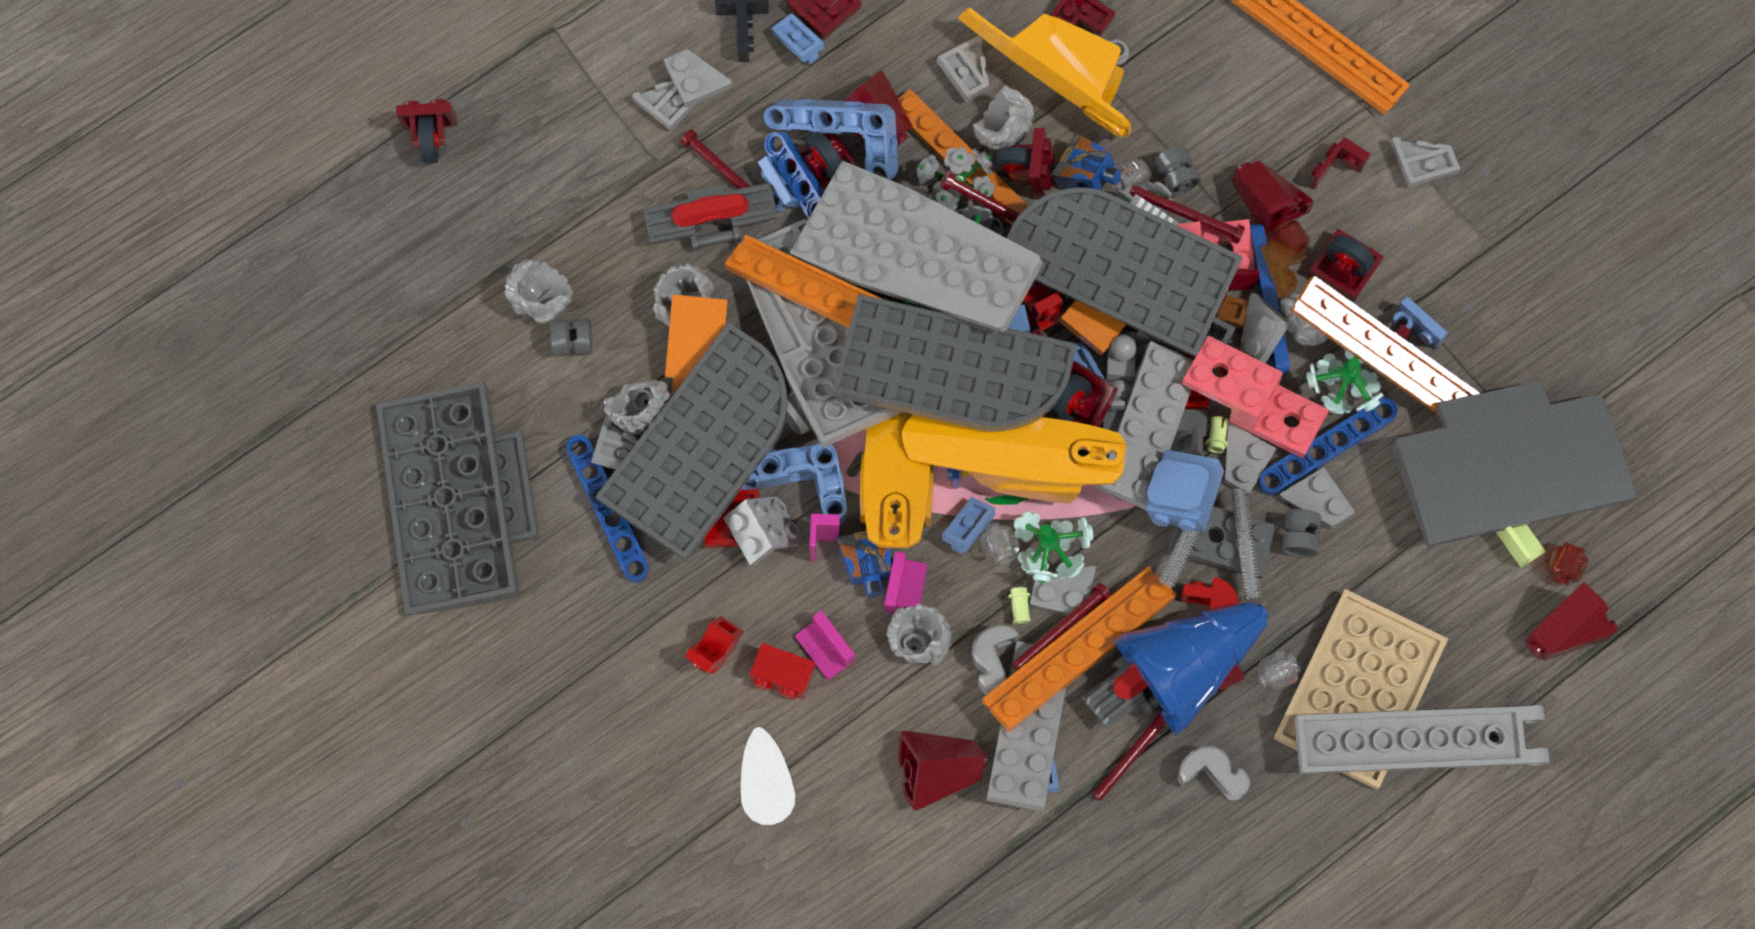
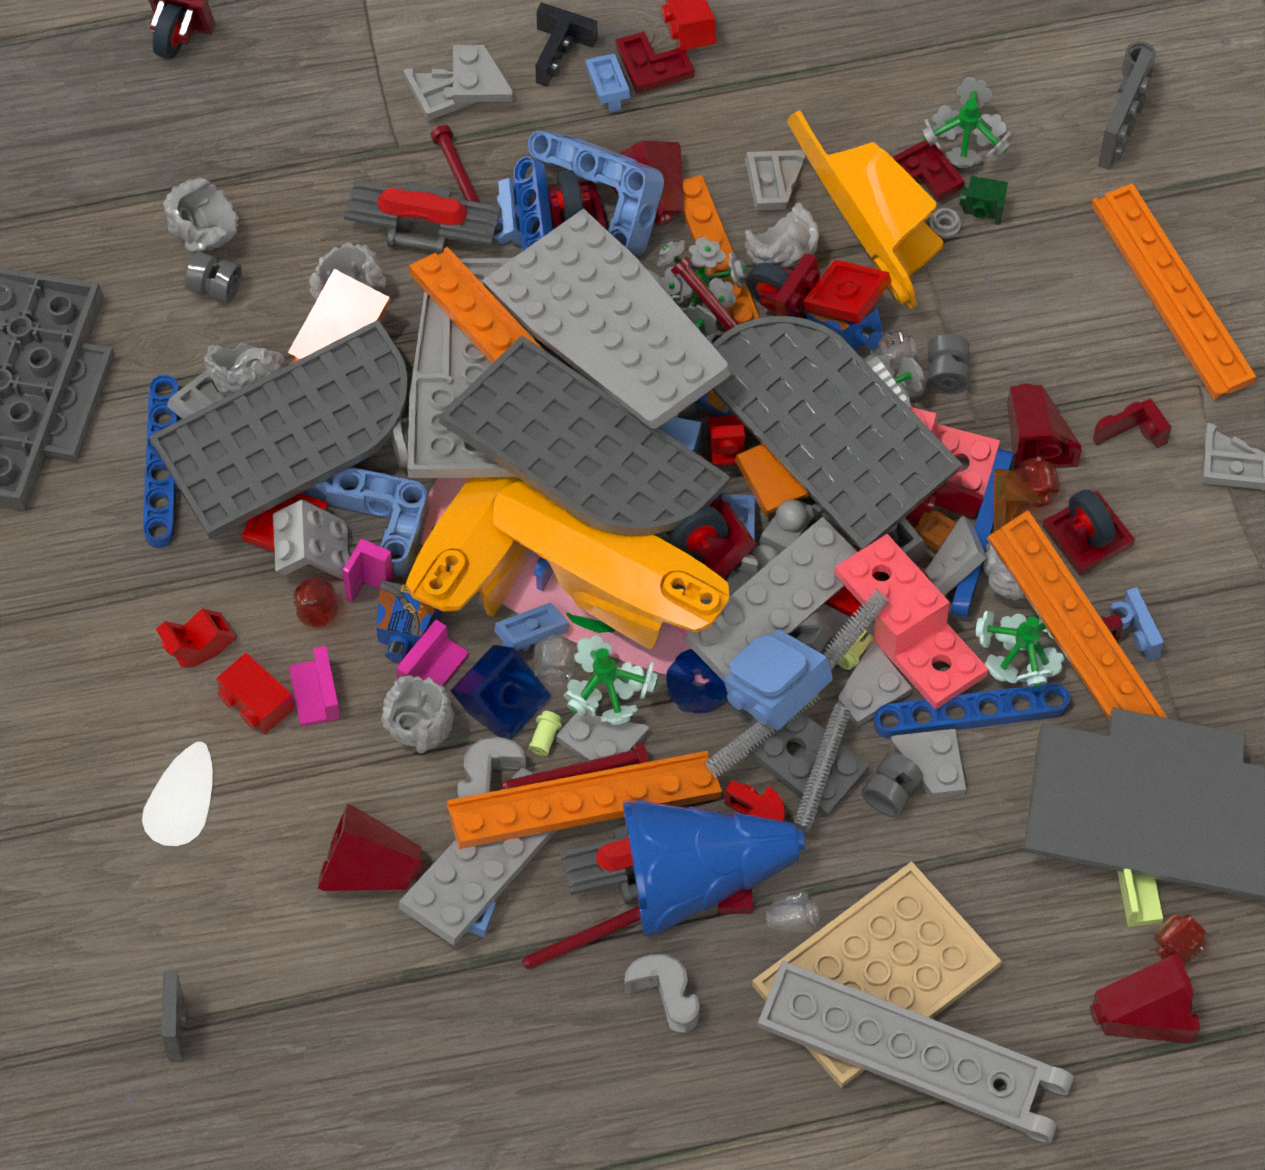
camera: 25 degrees right, 10 degrees down
(791, 575) = (315, 602): none -> clear red head
(970, 586) = (501, 691): none -> clear blue slope
(1078, 145) = (847, 291): none -> red plate
(1111, 526) = (690, 696): none -> clear blue plate
(1137, 20) = (984, 198): none -> dark green brick
(1190, 214) = (974, 445): dark red bar -> none
(1222, 424) = (855, 627): none -> light grey axle

